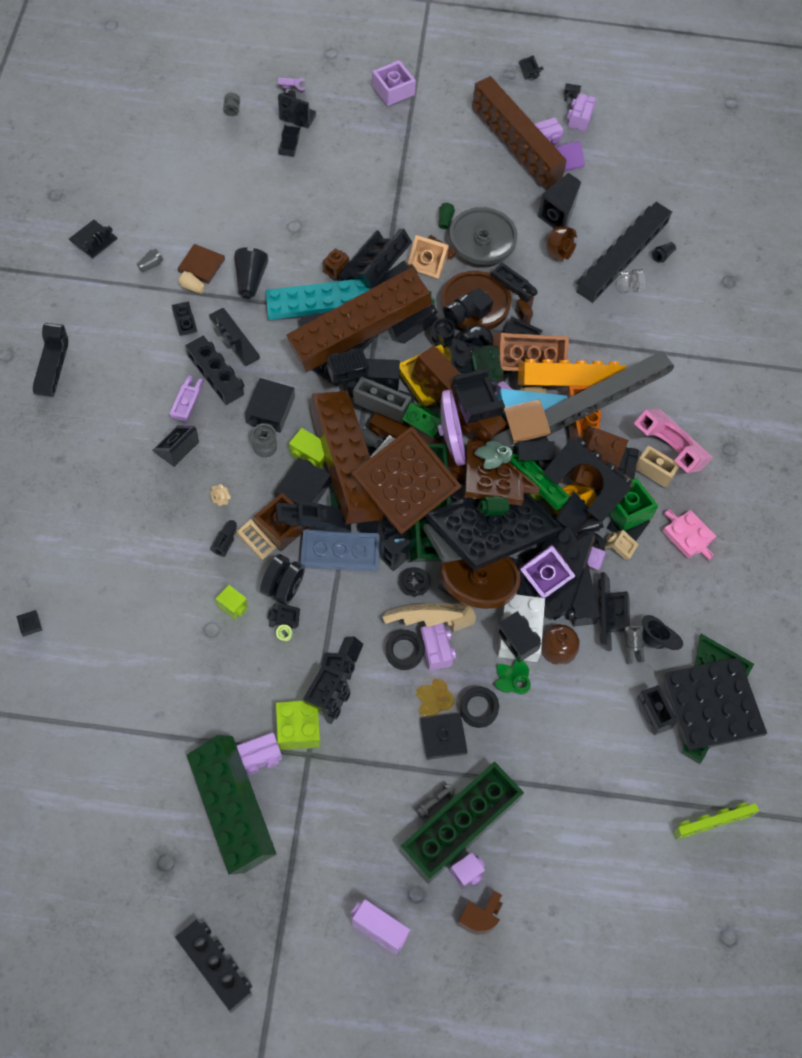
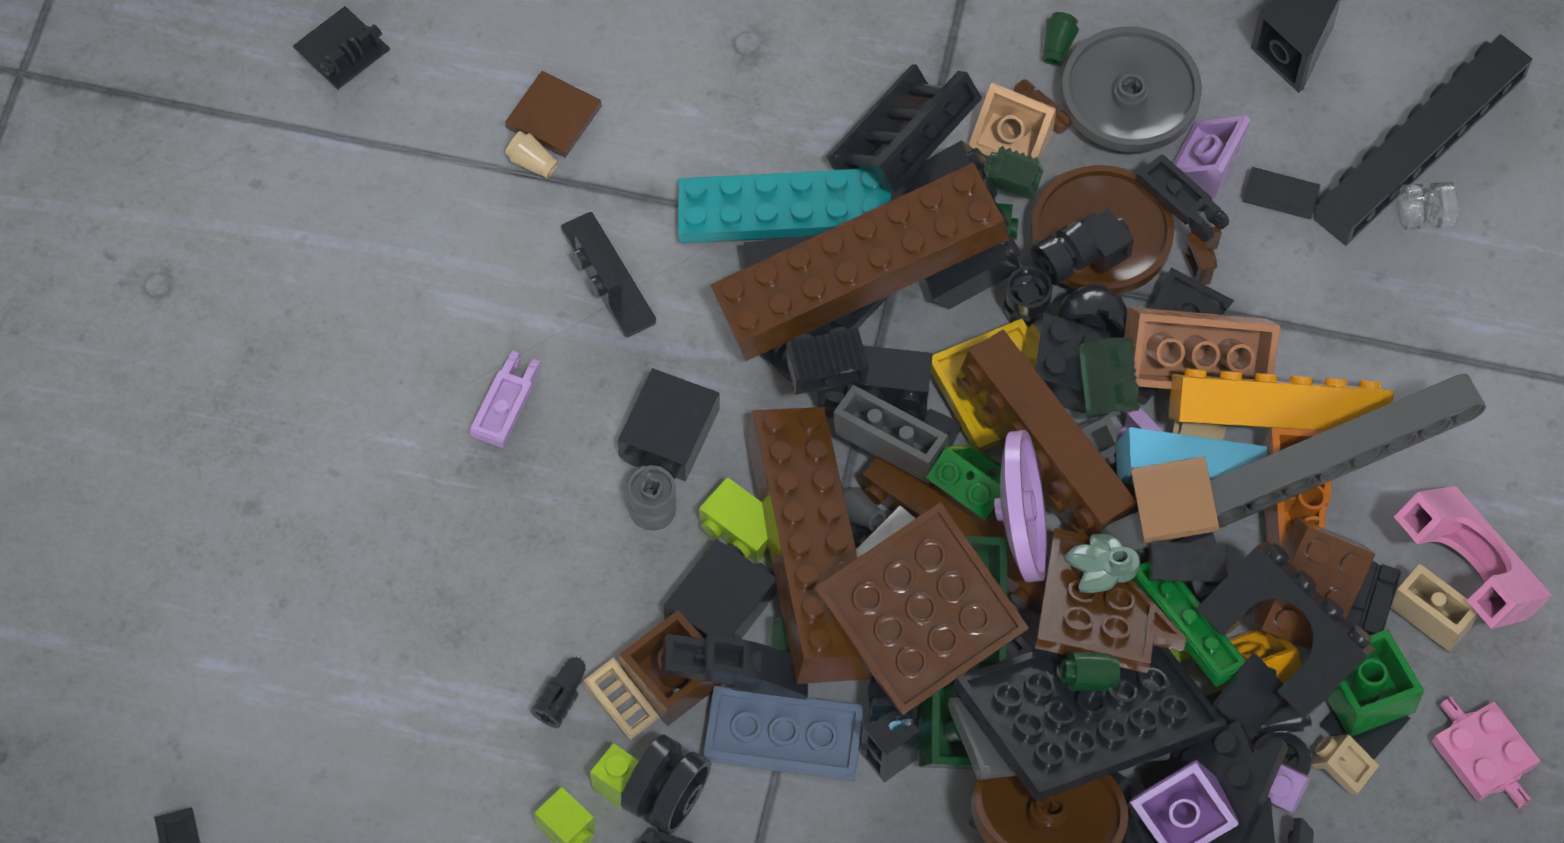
camera: 10 degrees right, 0 degrees up
(51, 359) = (246, 303): black beam -> none
(150, 260) = (453, 101): dark grey cone -> none
(177, 444) = (480, 492): black slope -> none
(184, 318) = (512, 229): black slope -> none
(198, 352) = (585, 390): black brick -> none
(220, 495) = (557, 603): tan plant -> none
(249, 270) = (648, 139): black cone -> none
(254, 576) = (612, 773): none -> lime brick
(335, 263) = (822, 131): reddish brown brick -> none
(368, 527) = (842, 691): black tile -> none
(422, 578) = (939, 799): black gear -> none
(431, 275) = (1015, 172): none -> clear green brick
(476, 396) = (1077, 442): black panel -> none
(525, 260) = (1212, 151): none -> lavender slope
(559, 280) = (1281, 193): none -> black tile
(561, 243) = (1291, 114): reddish brown cylinder -> none
(663, 252) = (1506, 144): black cone -> none

